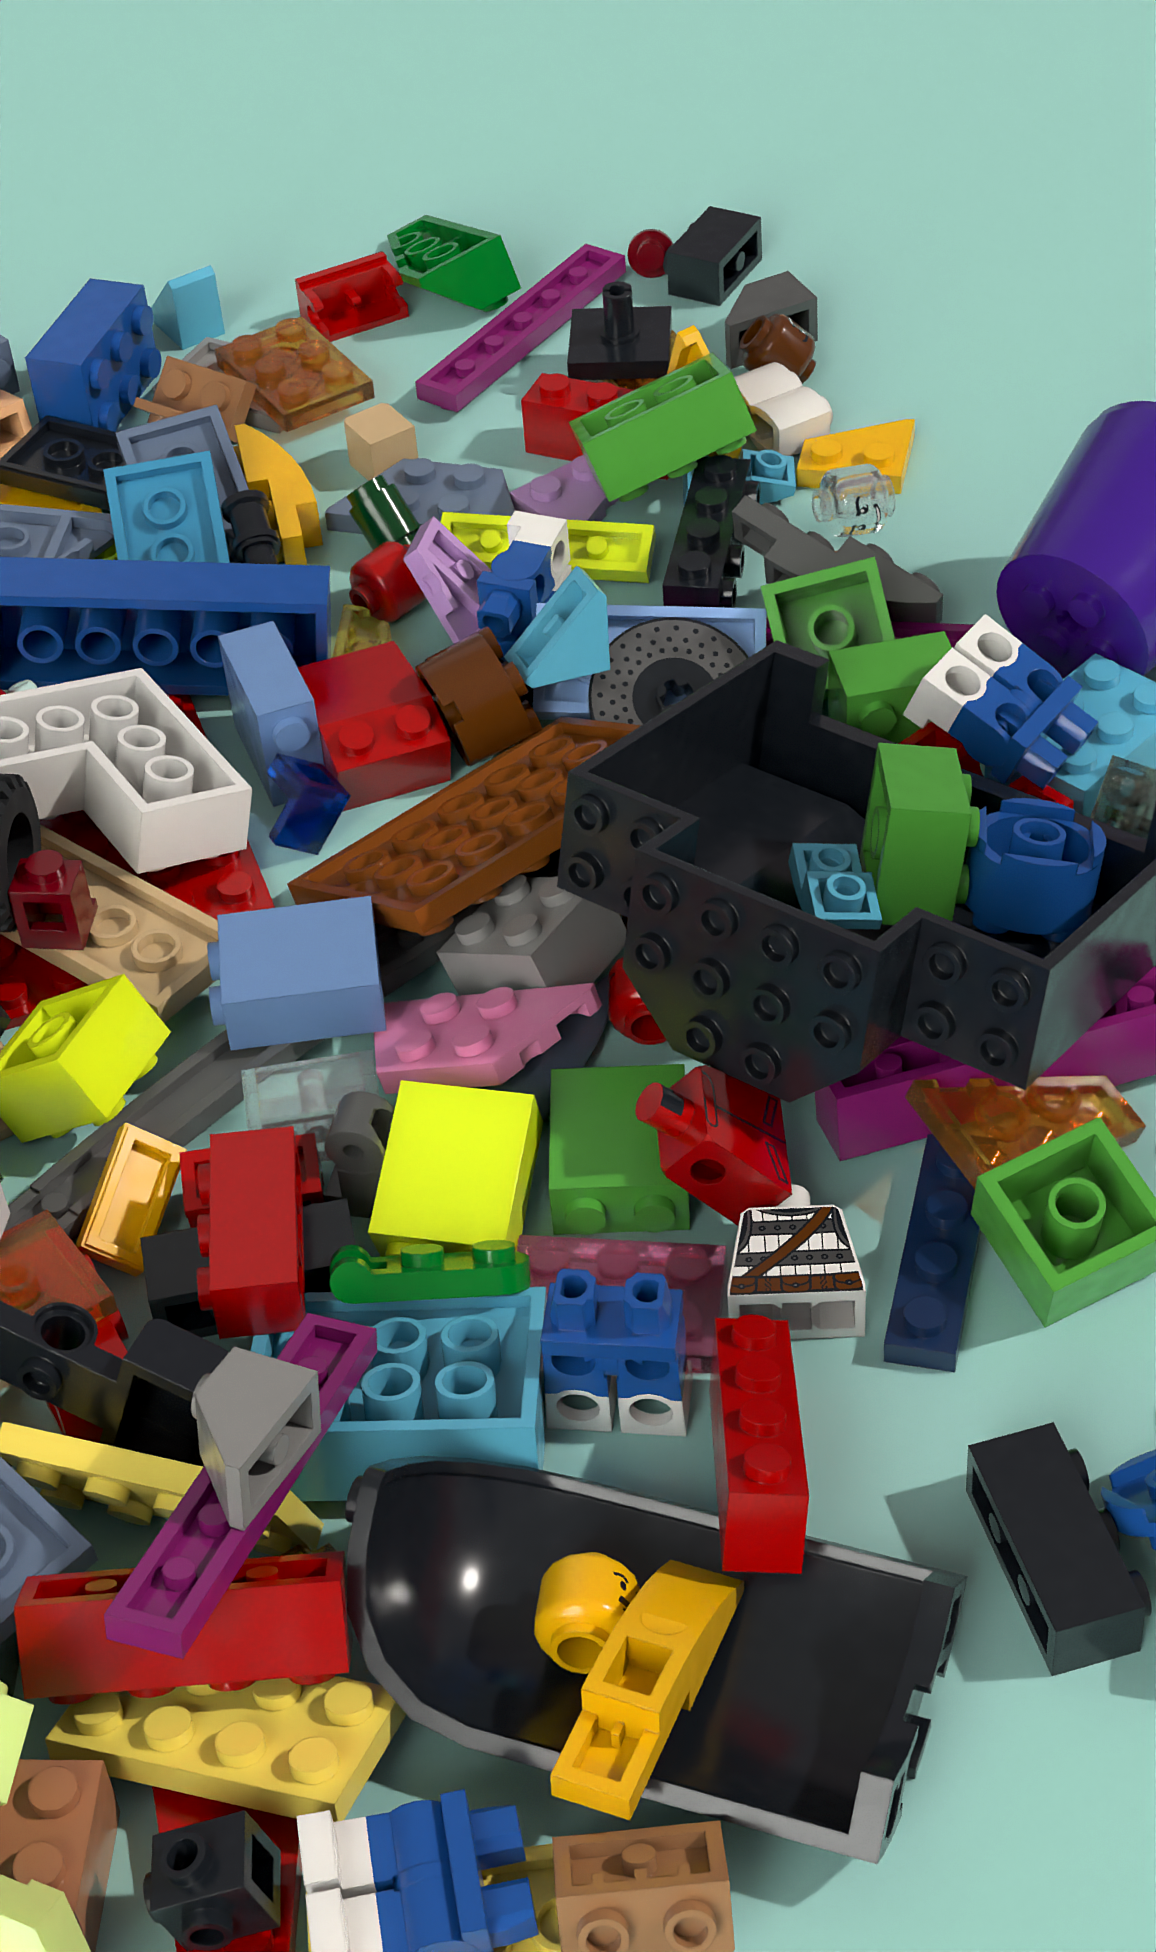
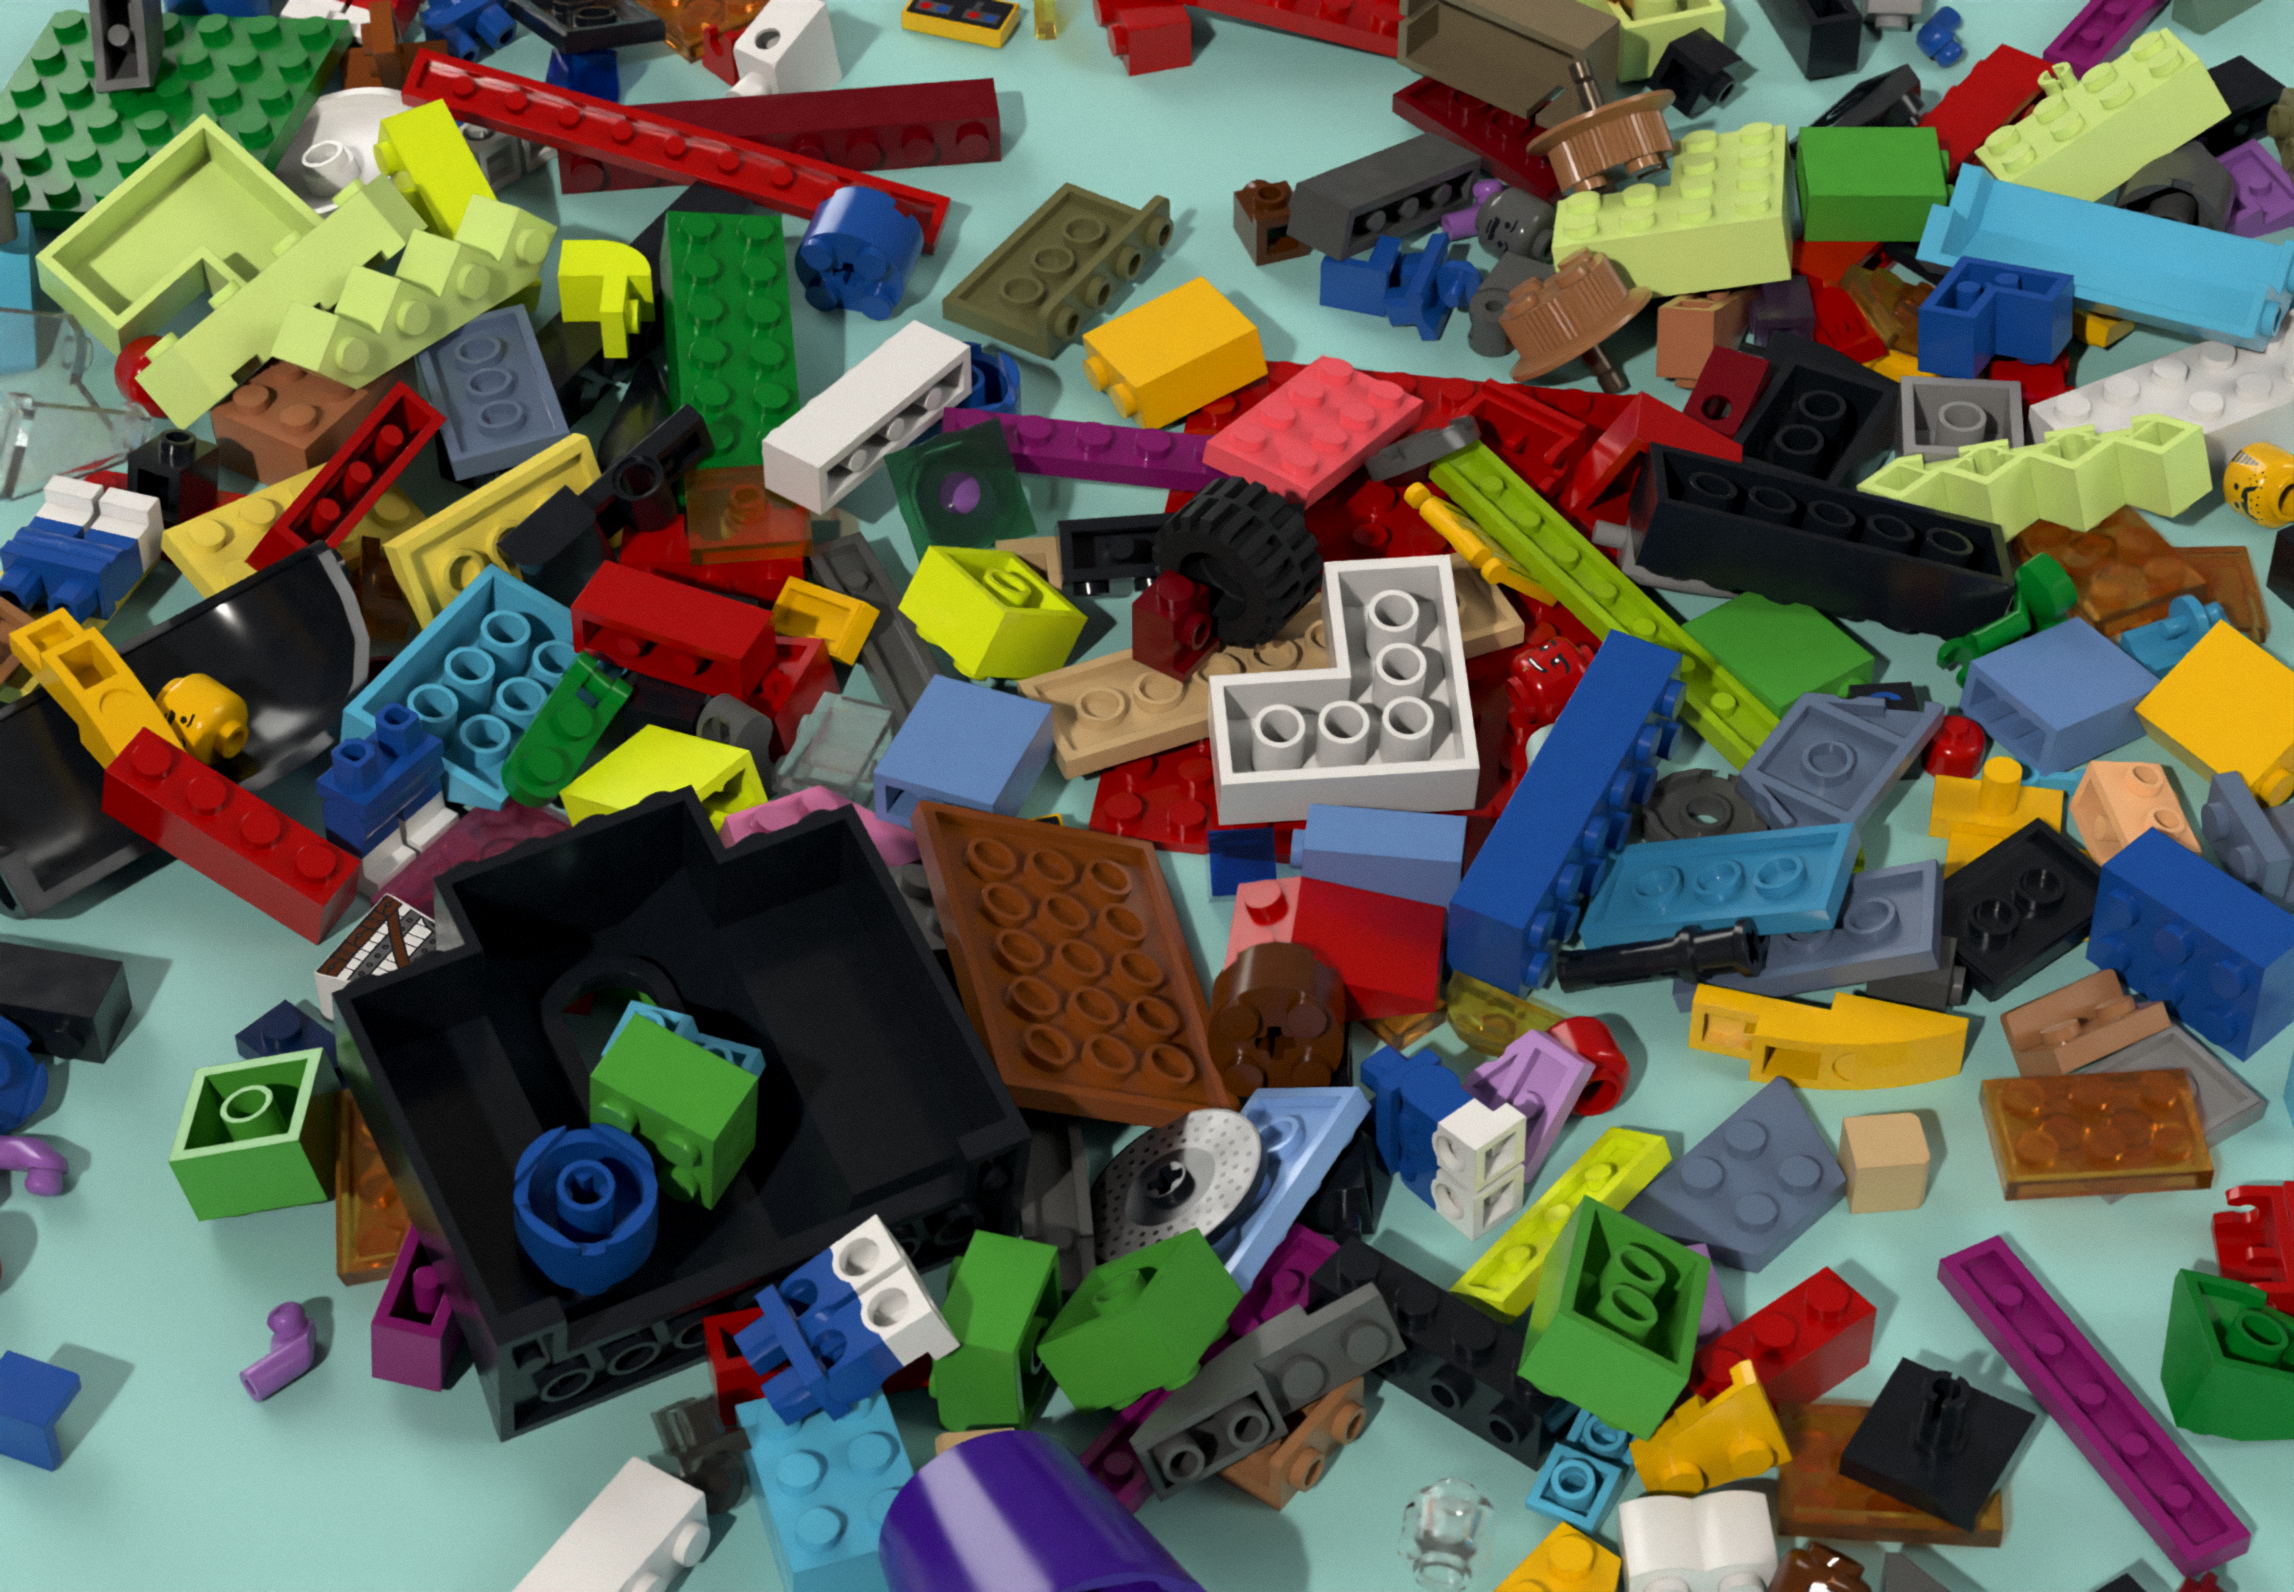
camera: 115 degrees right, 0 degrees up
(196, 1549) = (399, 511): magenta plate -> none
(254, 1427) = (397, 482): light grey slope -> none
(382, 513) = (1702, 1095): dark green brick -> none
(566, 636) = (1254, 1072): medium azure slope -> none

